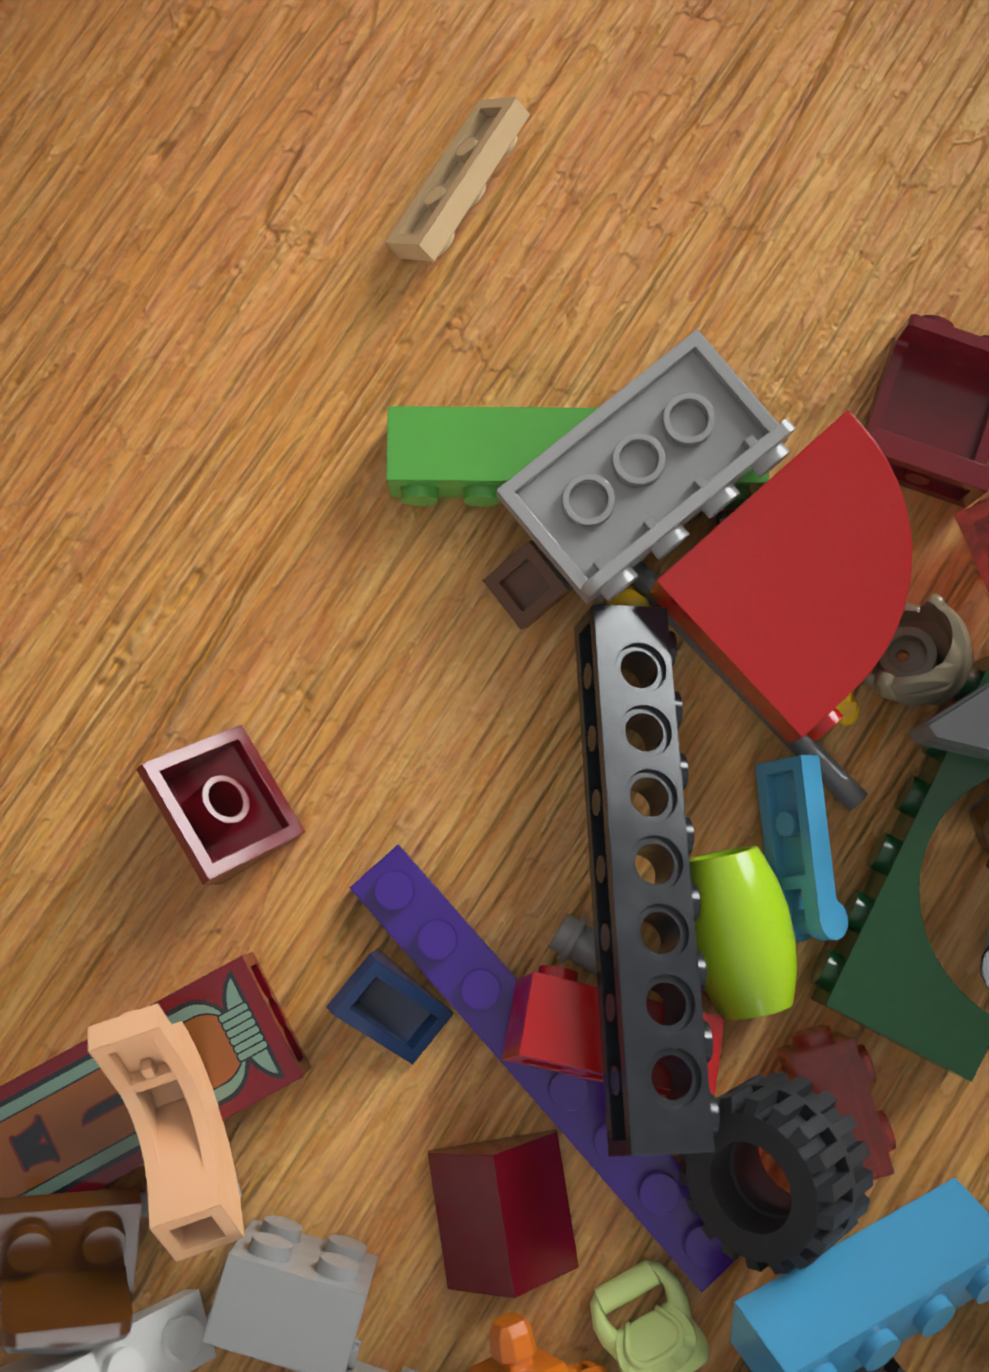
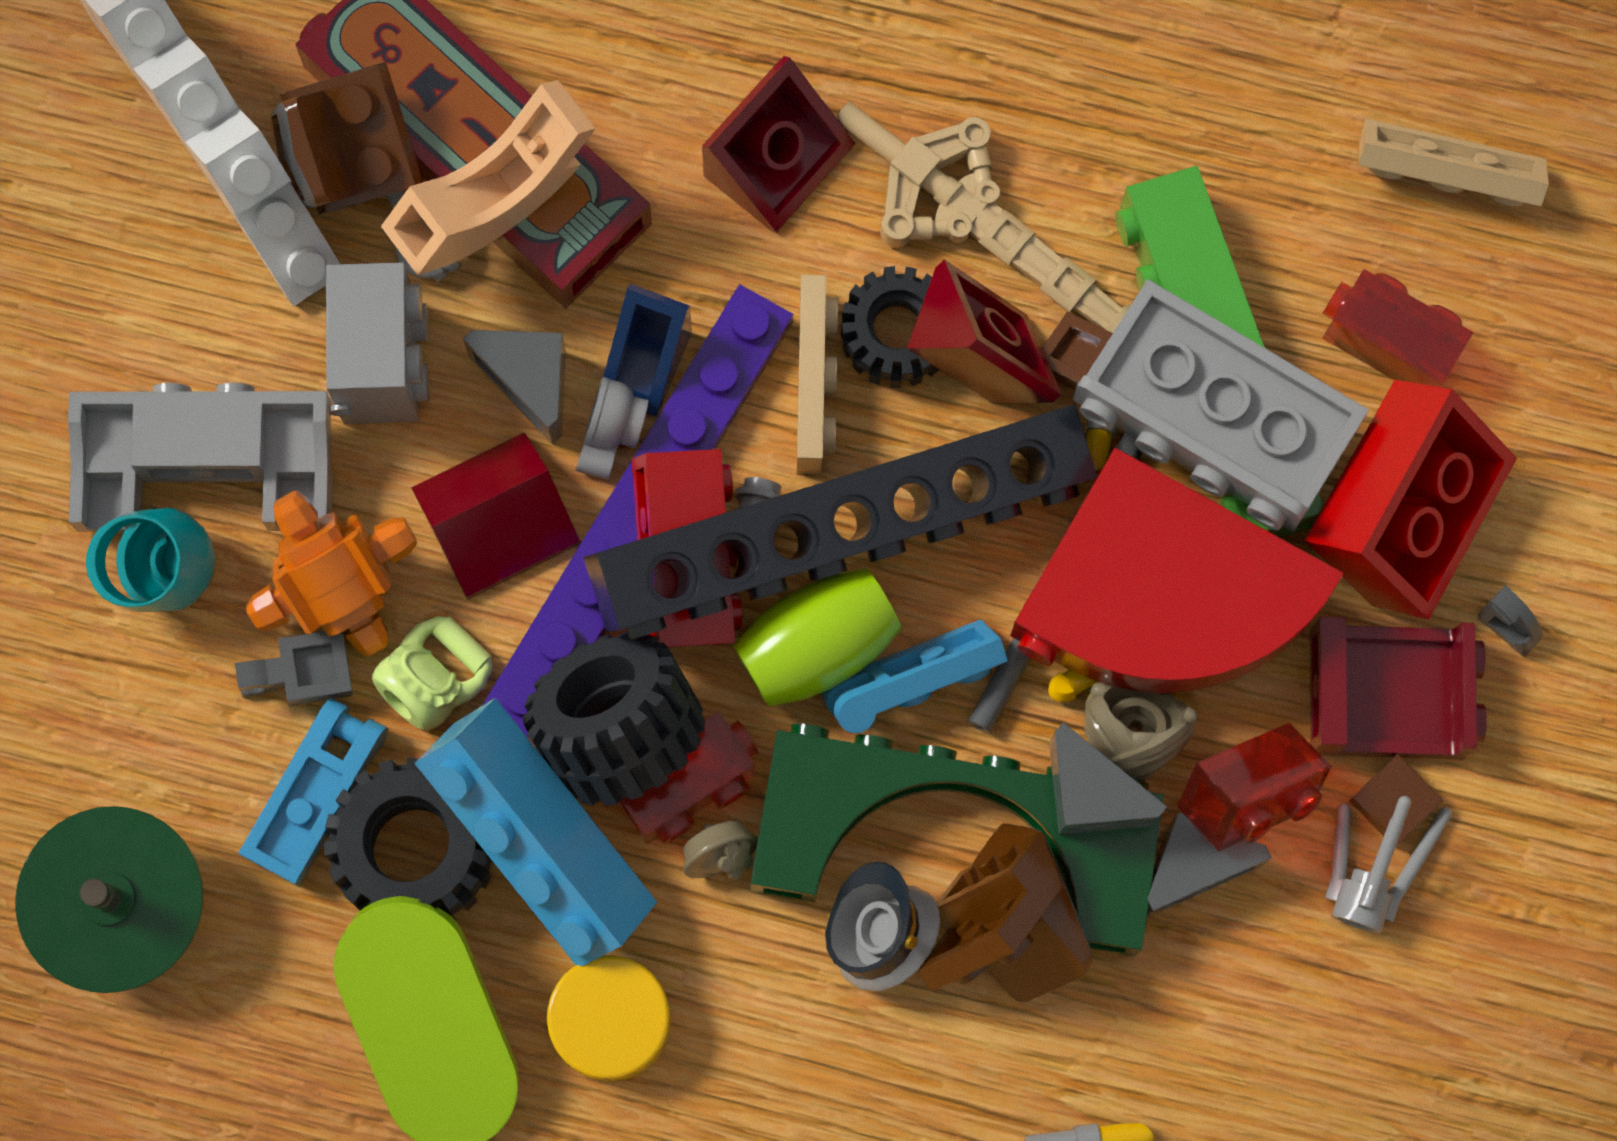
camera: 70 degrees right, 5 degrees down
(349, 637) = (971, 209): none -> tan bar
(373, 1134) = (527, 370): none -> dark grey slope
(437, 708) = (858, 331): none -> black tyre
(450, 1061) = (613, 421): none -> light grey piece
(469, 843) = (816, 374): none -> tan plate
(492, 669) = (981, 340): none -> dark red slope
(605, 287) = (1394, 330): none -> clear red brick
(779, 325) = (1411, 498): none -> red brick
(901, 287) = (1511, 621): none -> dark grey tile
(920, 1095) = (719, 849): none -> dark tan hat

